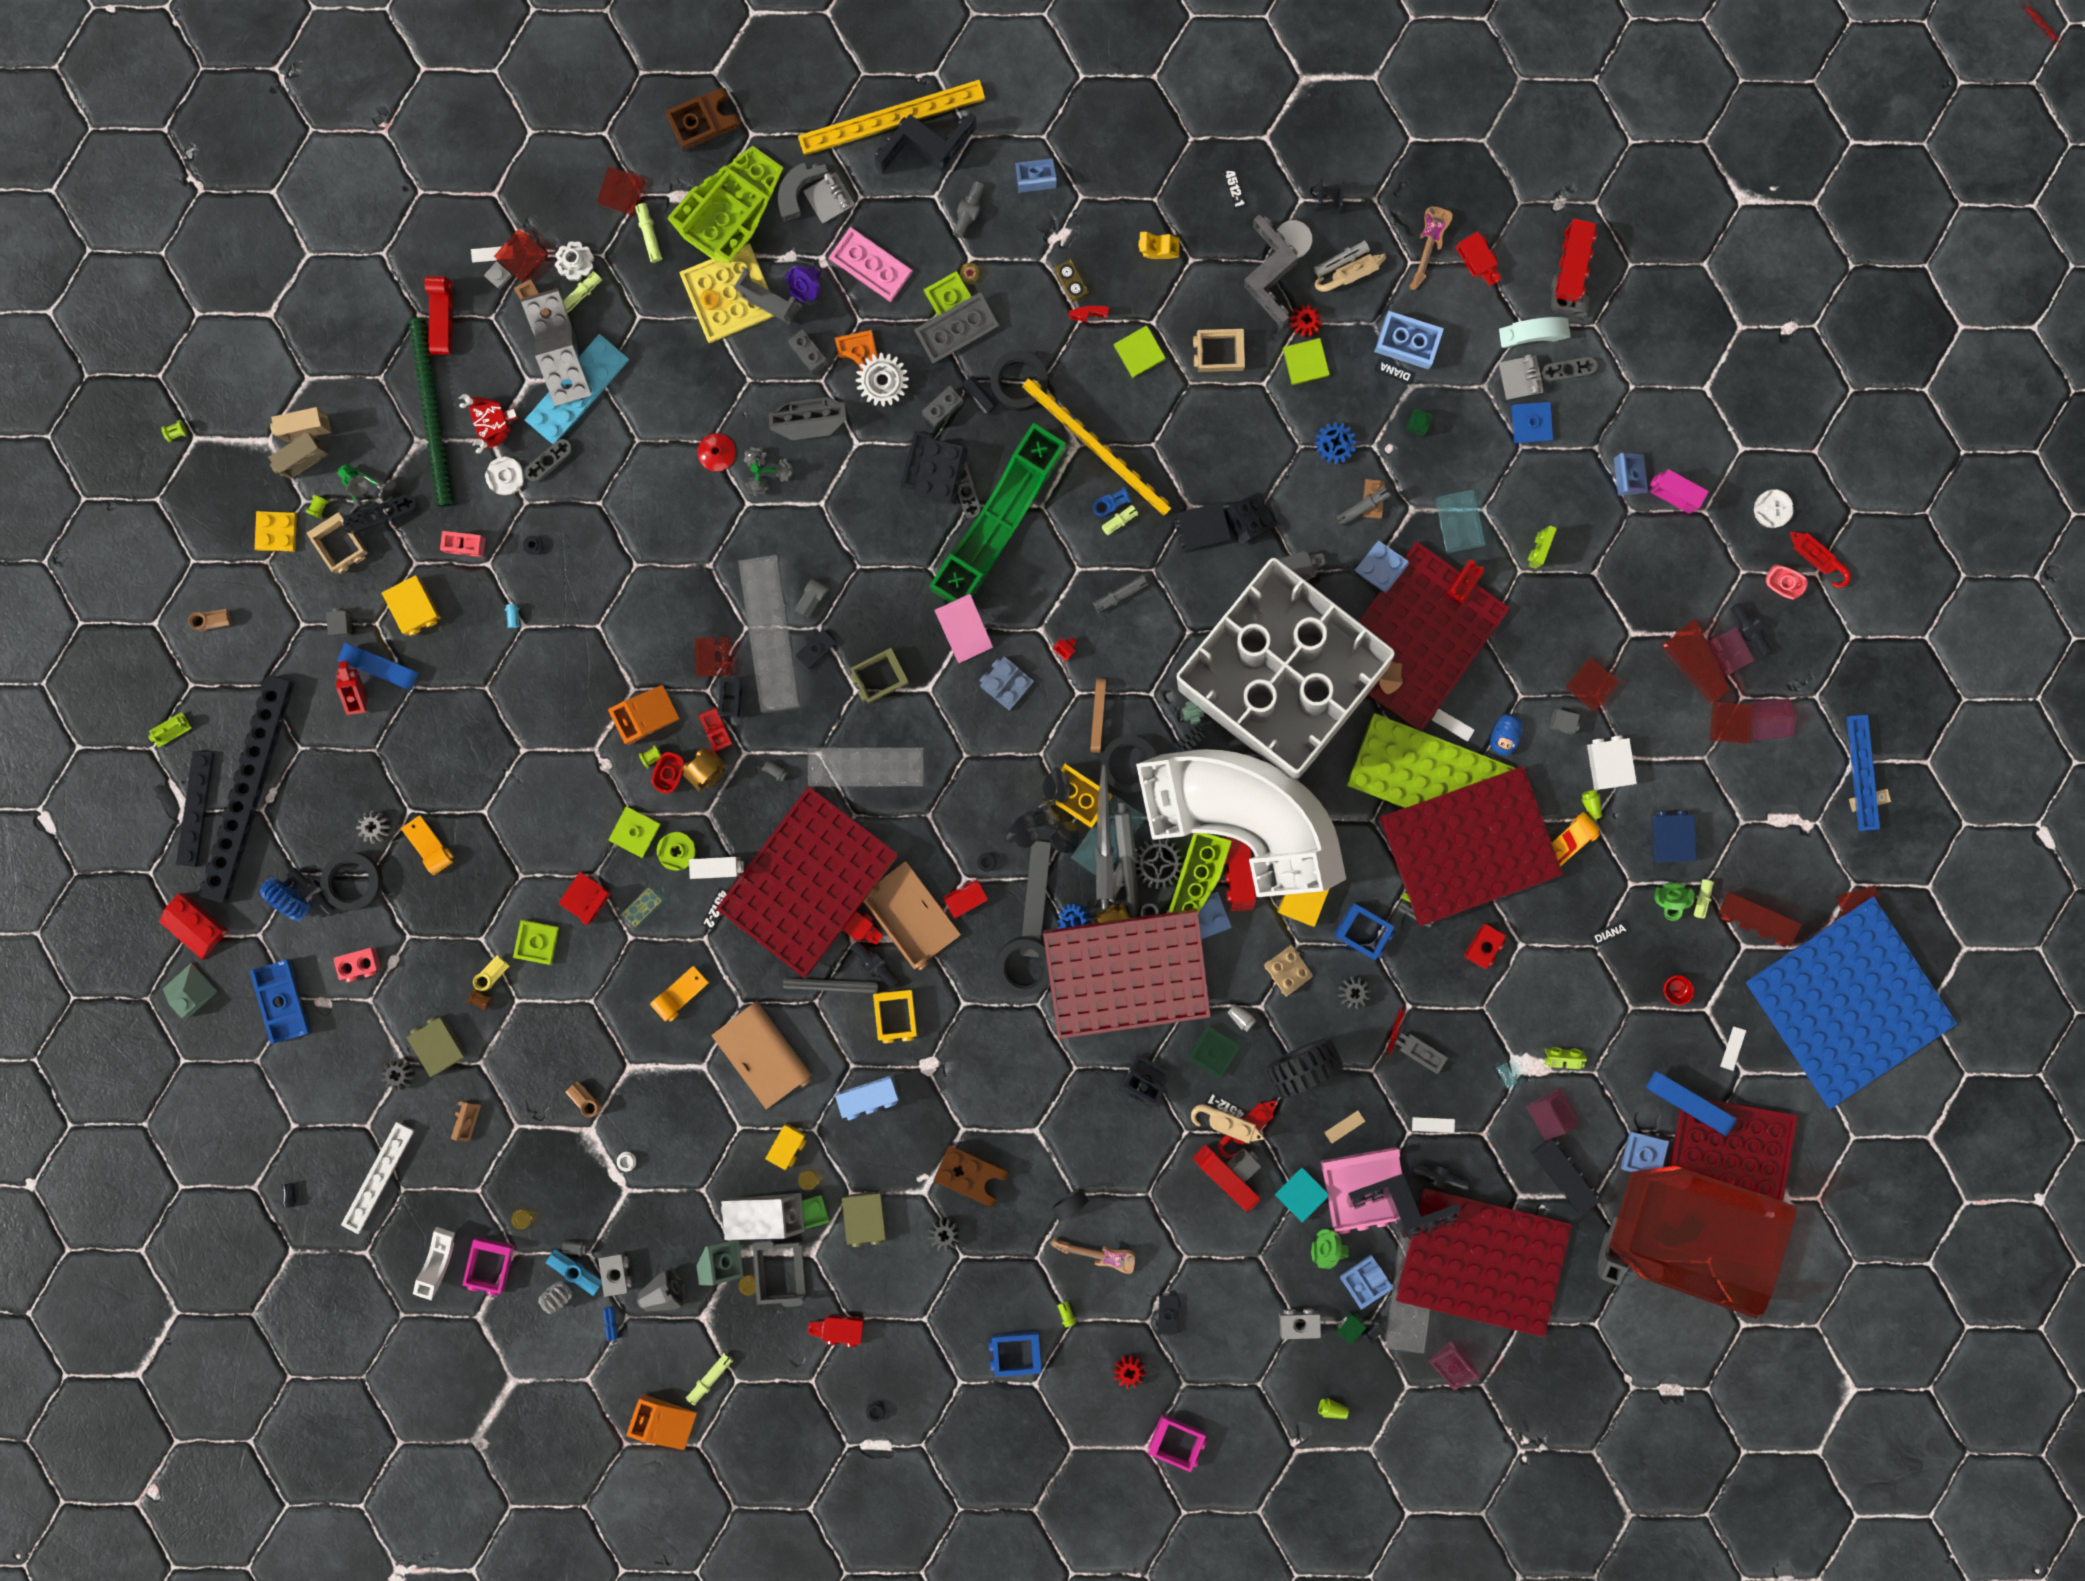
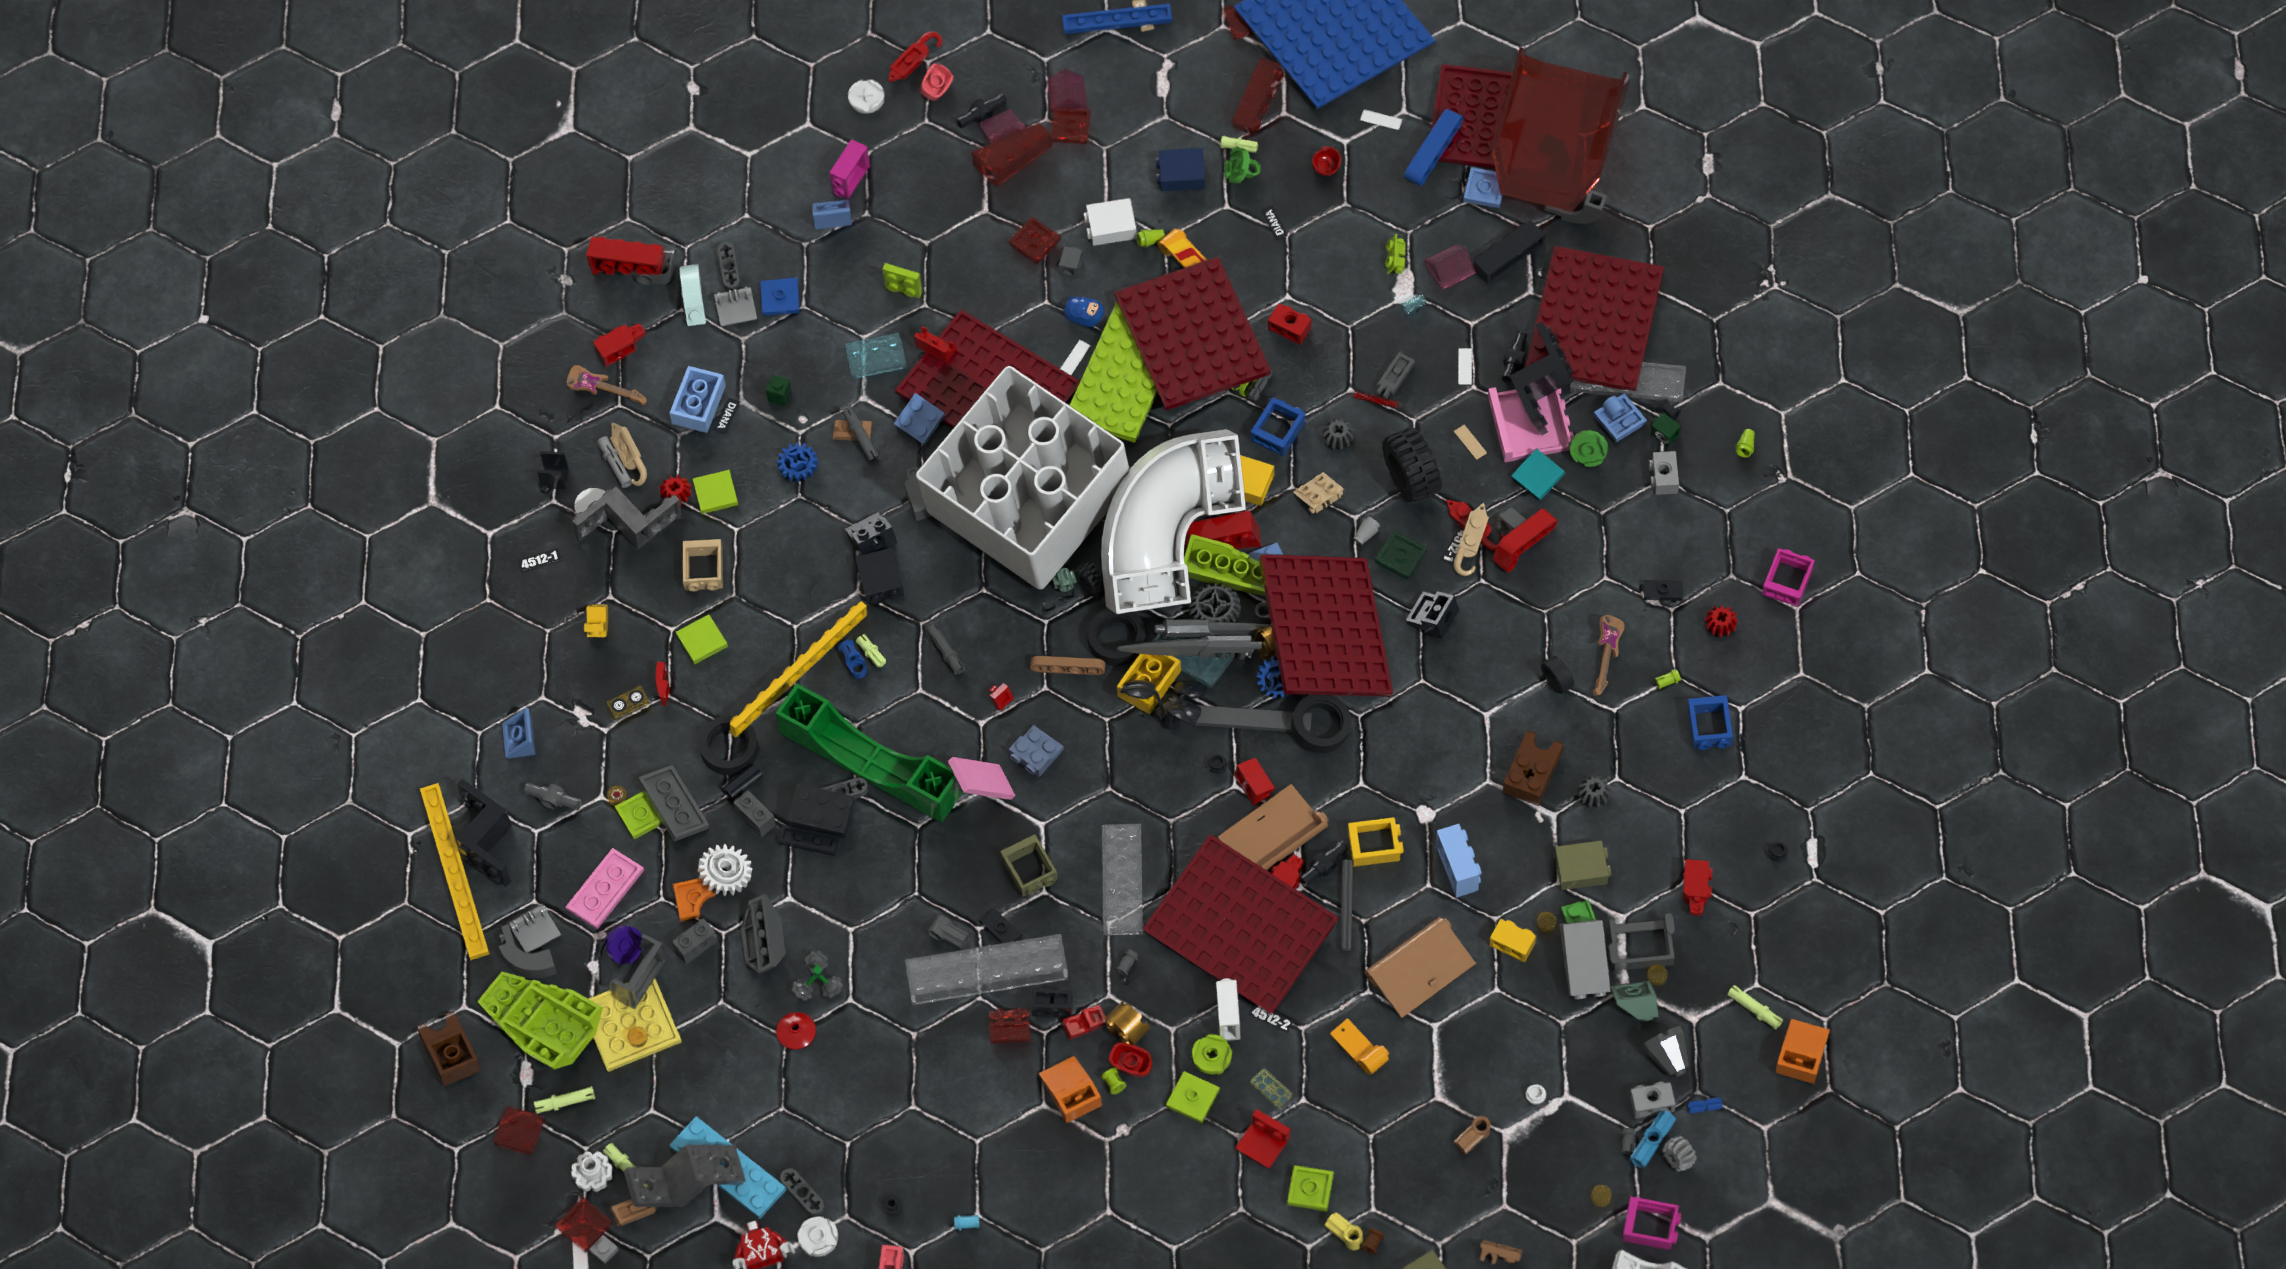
camera: 85 degrees left, 25 degrees down
(1453, 1367) = (1696, 339): clear pink slope -> none

